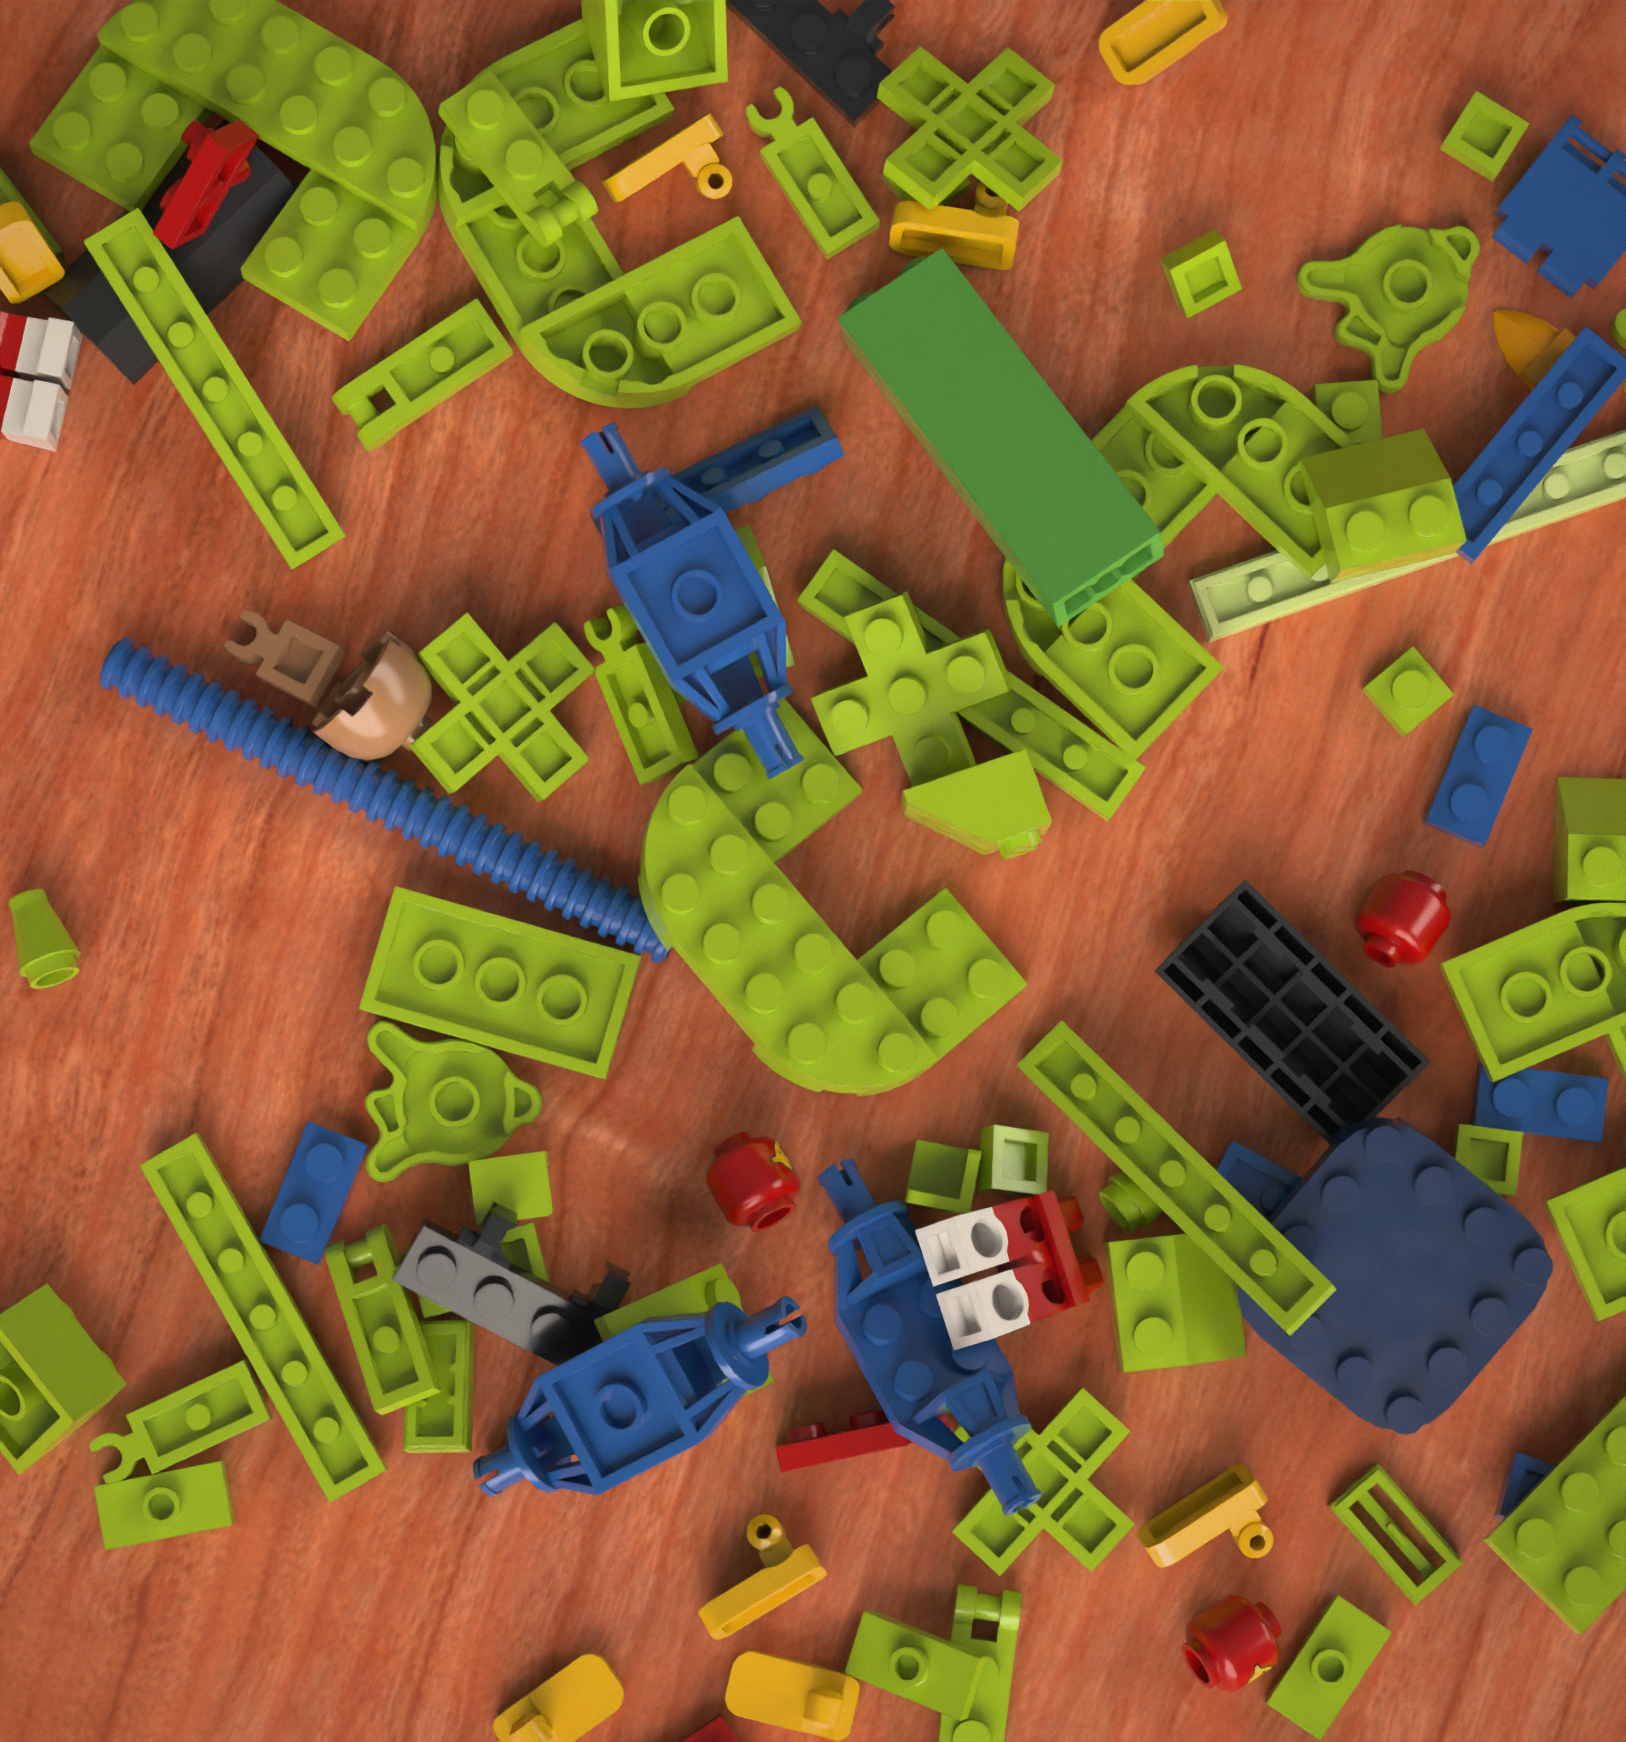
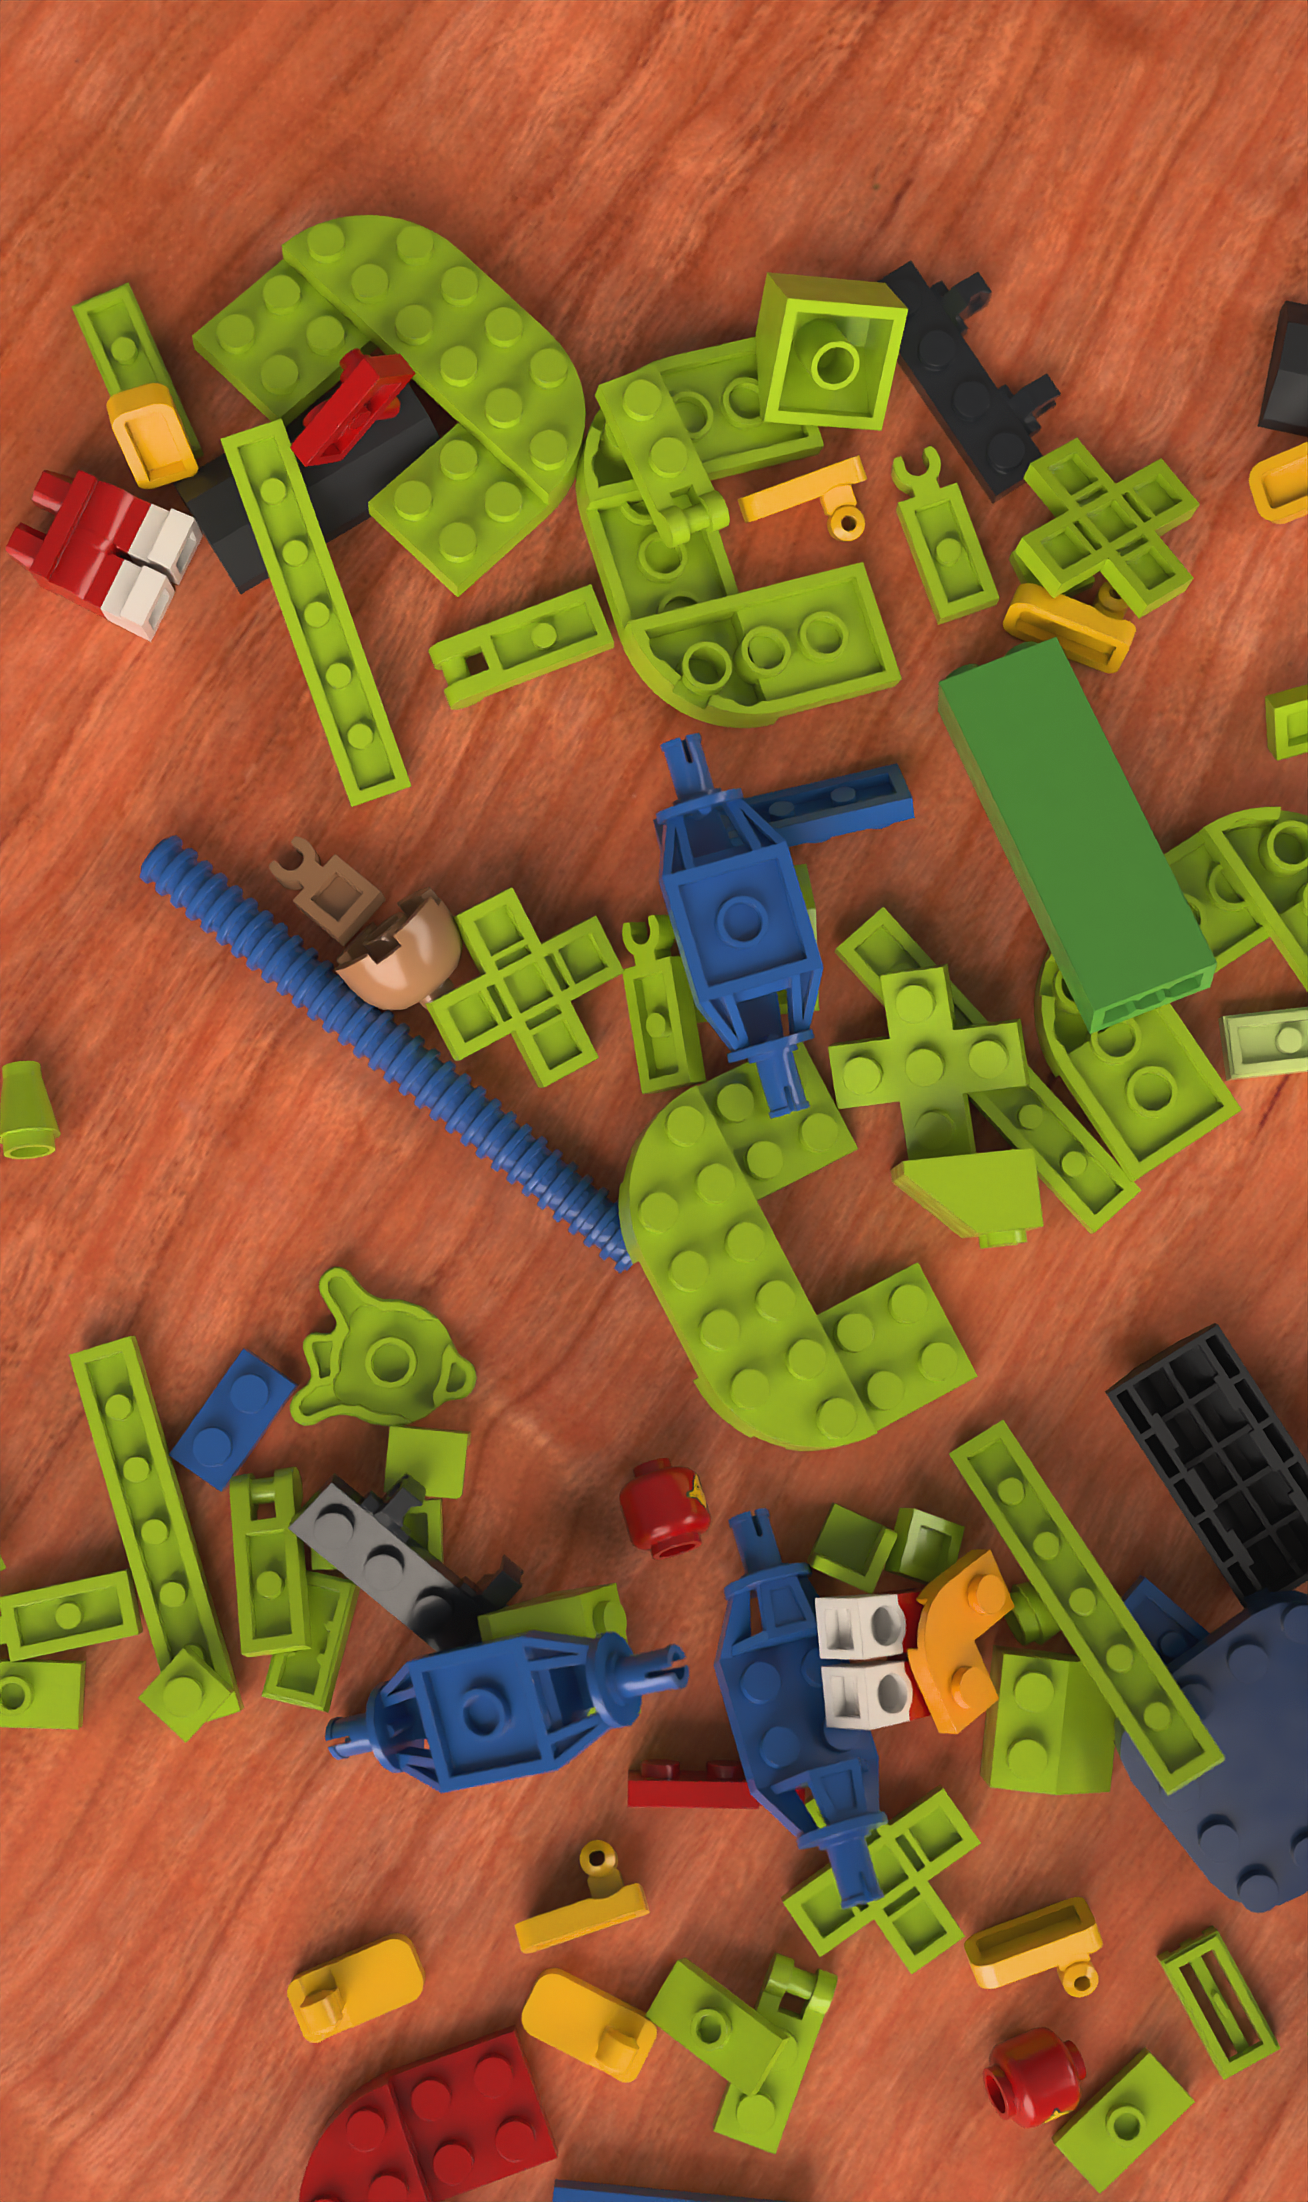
camera: 10 degrees right, 0 degrees up
(330, 1463) = (186, 1693): none -> lime plate
(500, 983) = (461, 1256): lime plate -> none
(1052, 1256) = (947, 1662): none -> light orange plate

